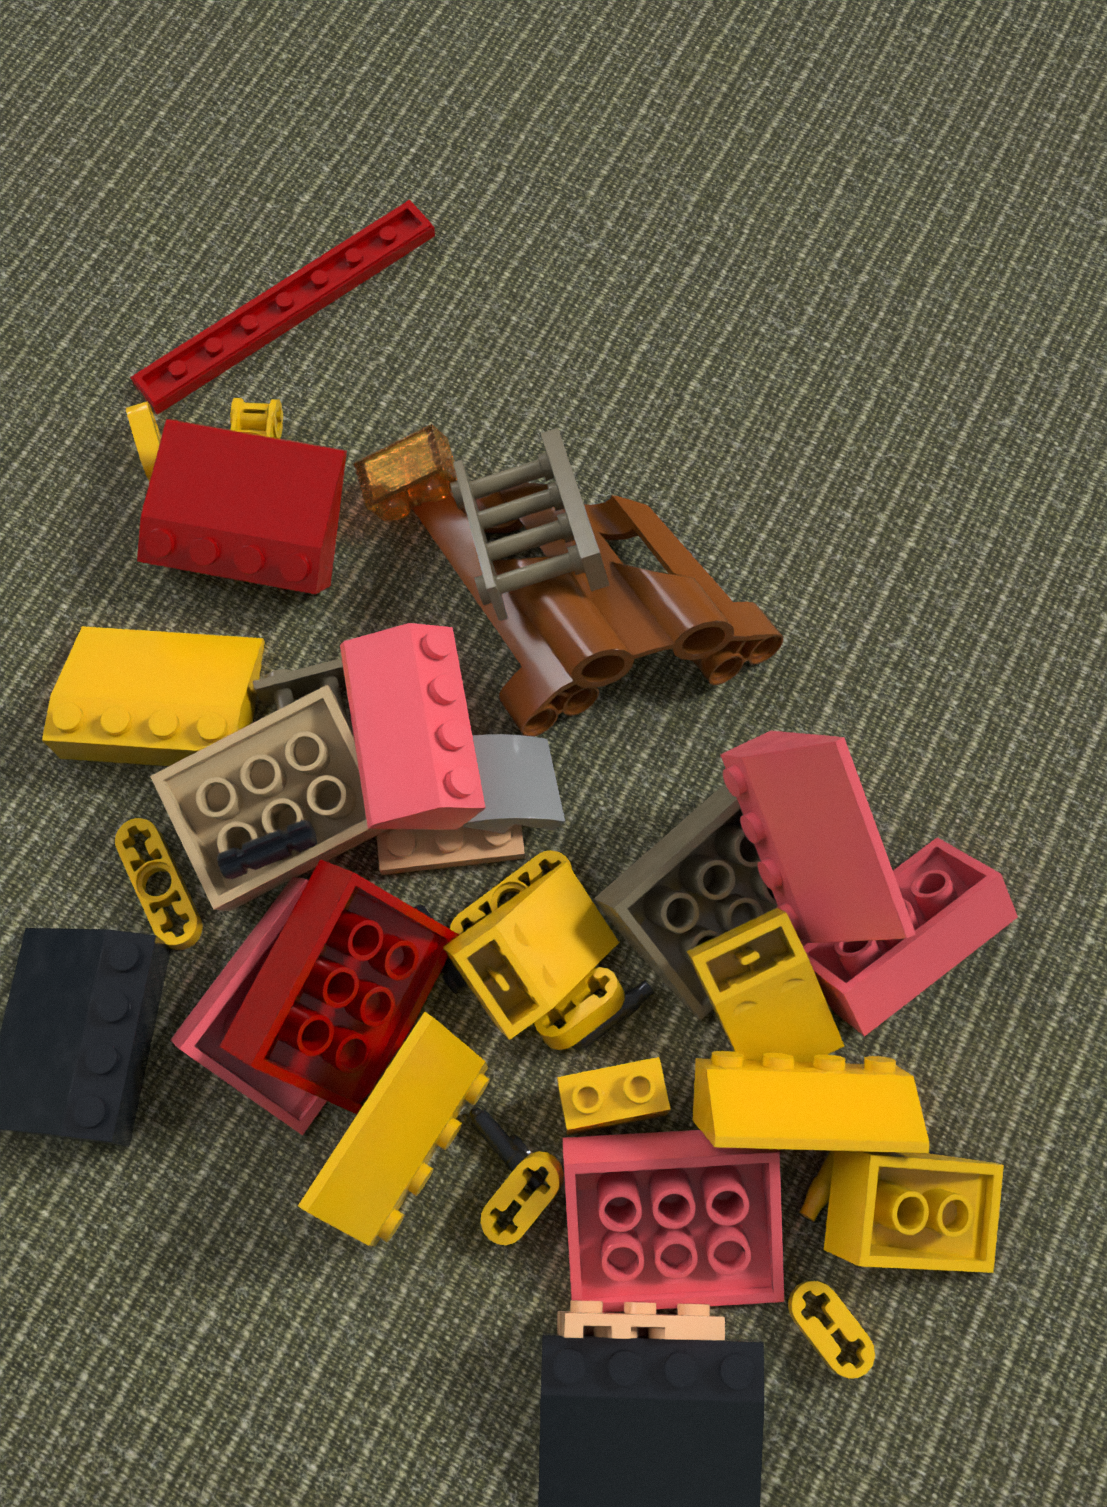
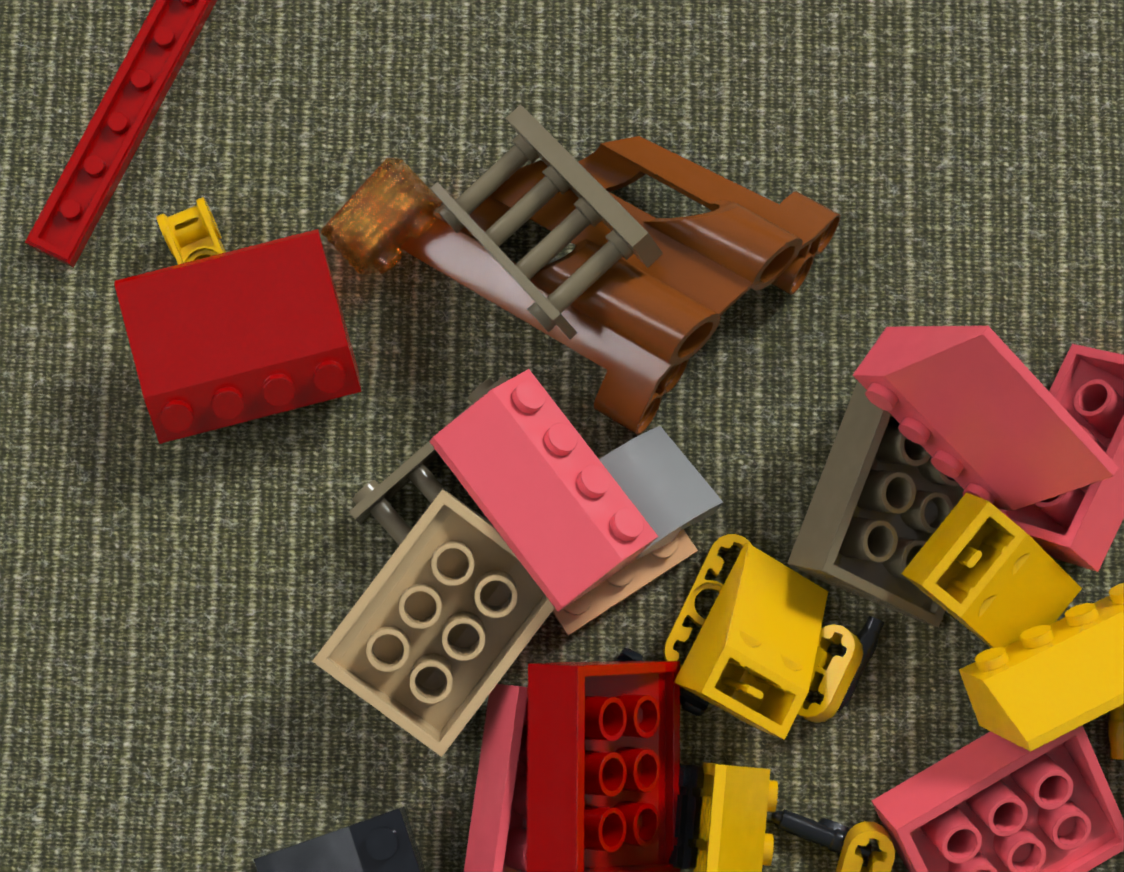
camera: 30 degrees left, 10 degrees up
(145, 434) = (87, 304): yellow beam -> none
(150, 695) = (250, 568): yellow slope -> none
(157, 847) = (336, 719): yellow beam -> none
(267, 849) = (468, 677): black axle -> none
(613, 1096) = (898, 740): yellow brick -> none

